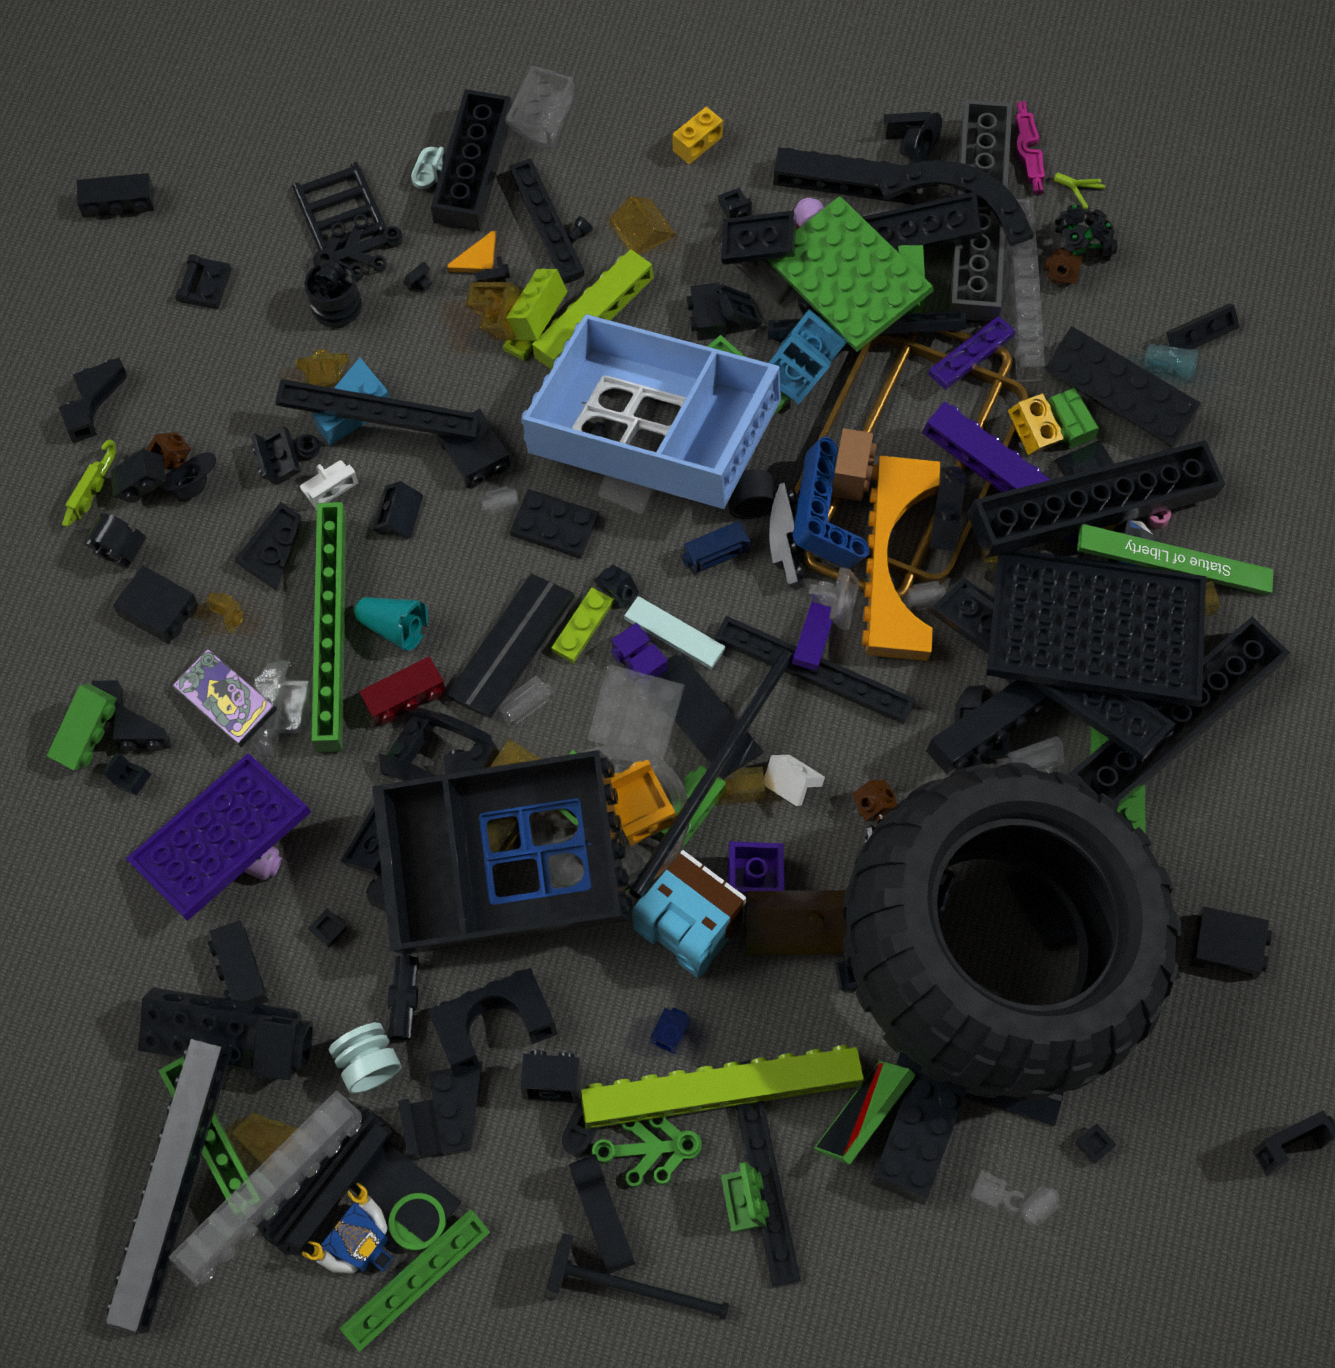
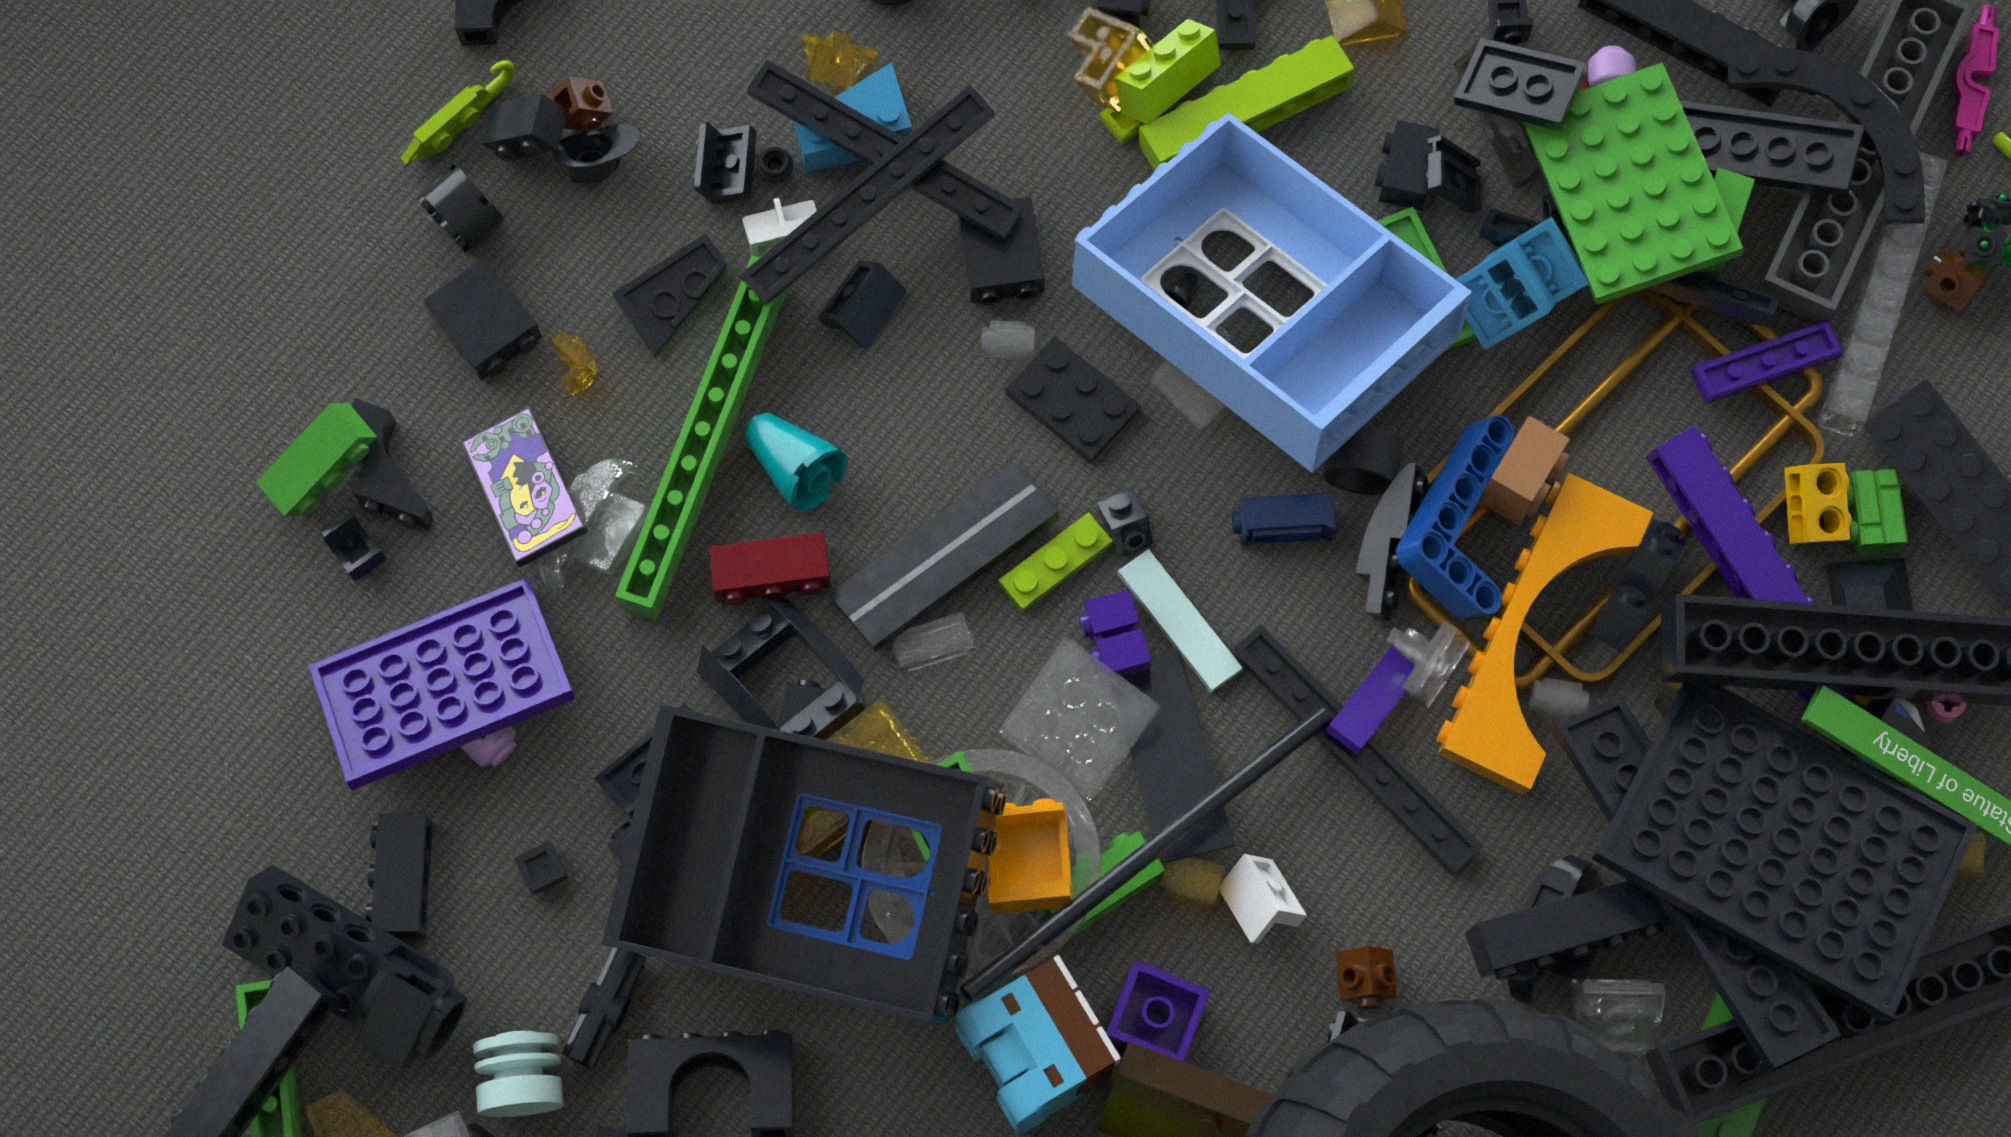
camera: 20 degrees right, 5 degrees up
(377, 440) = (867, 195): none -> black plate

